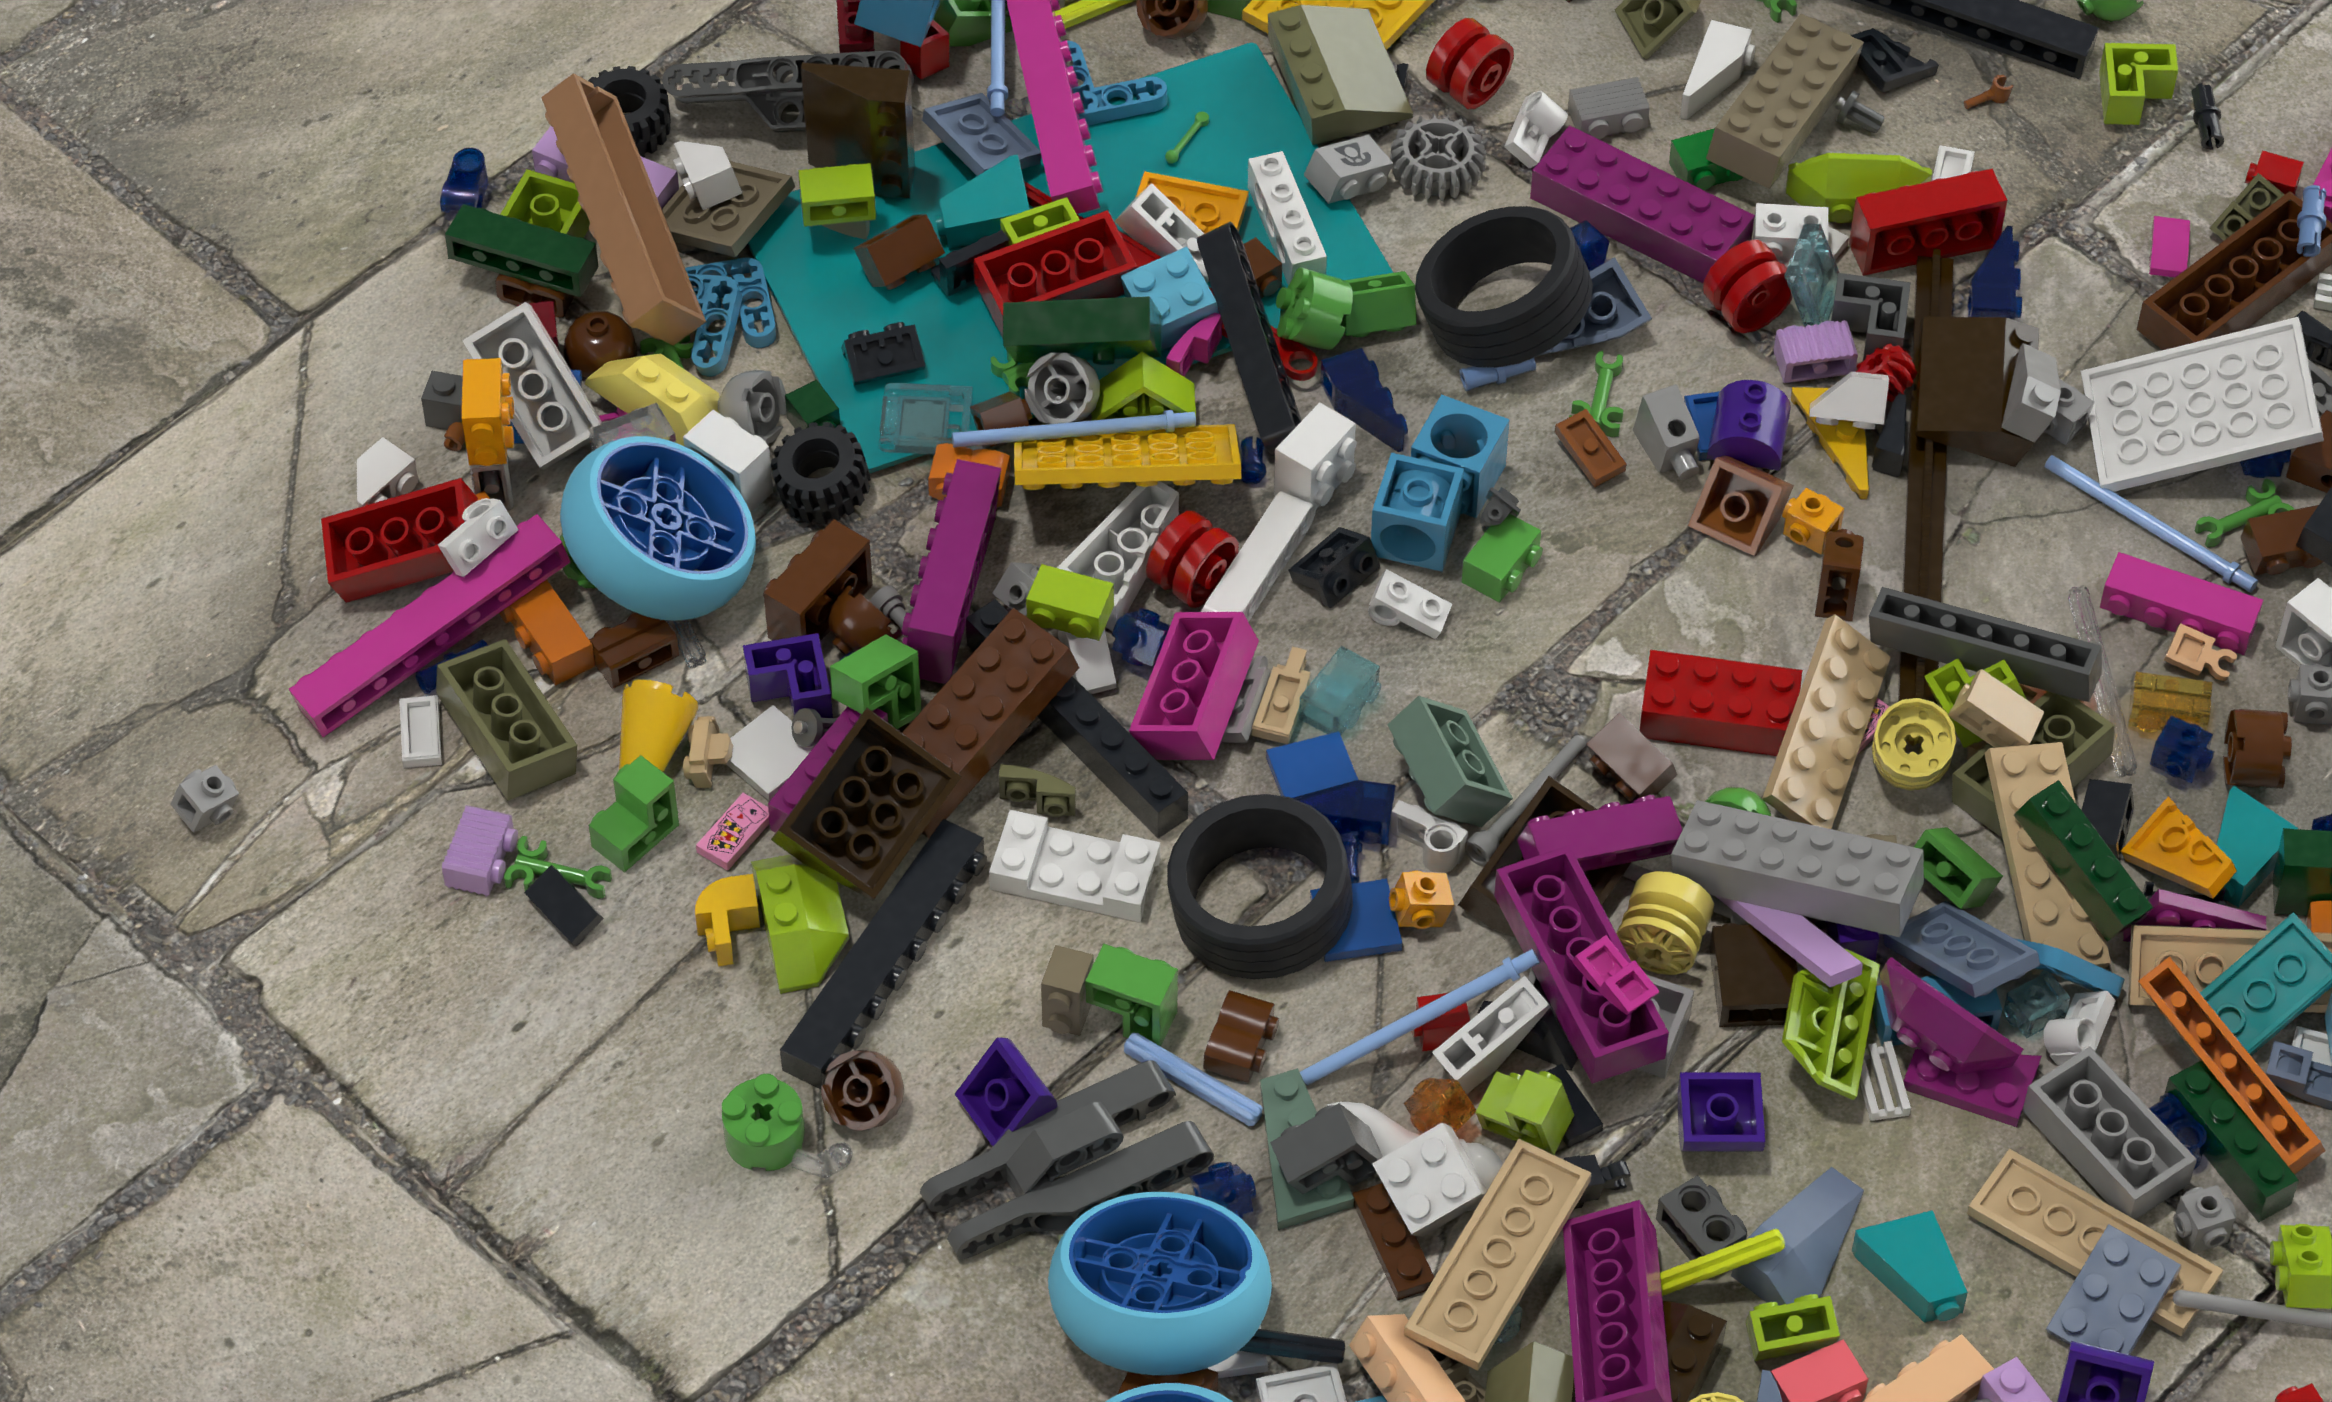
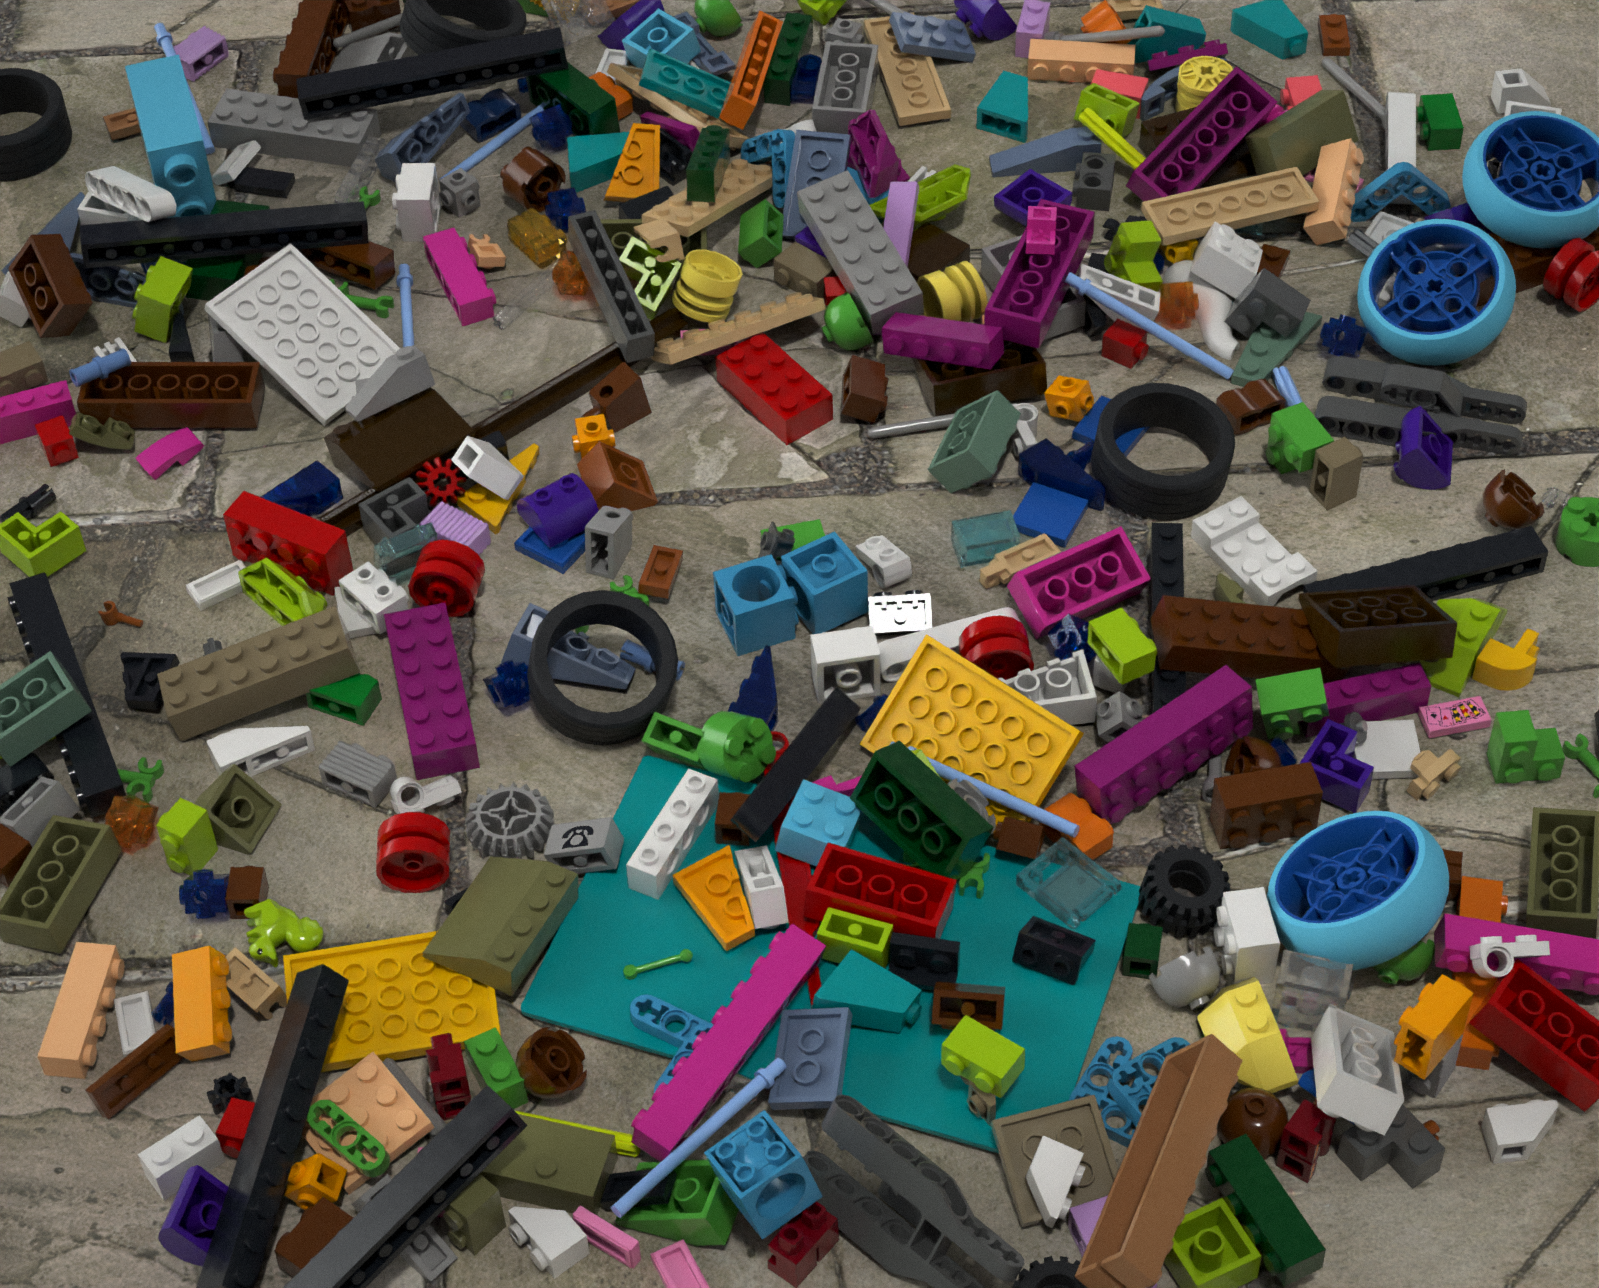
camera: 135 degrees left, 5 degrees down
(653, 722) = (1461, 798): yellow cone -> none
(861, 119) = (912, 1074): dark brown slope -> none

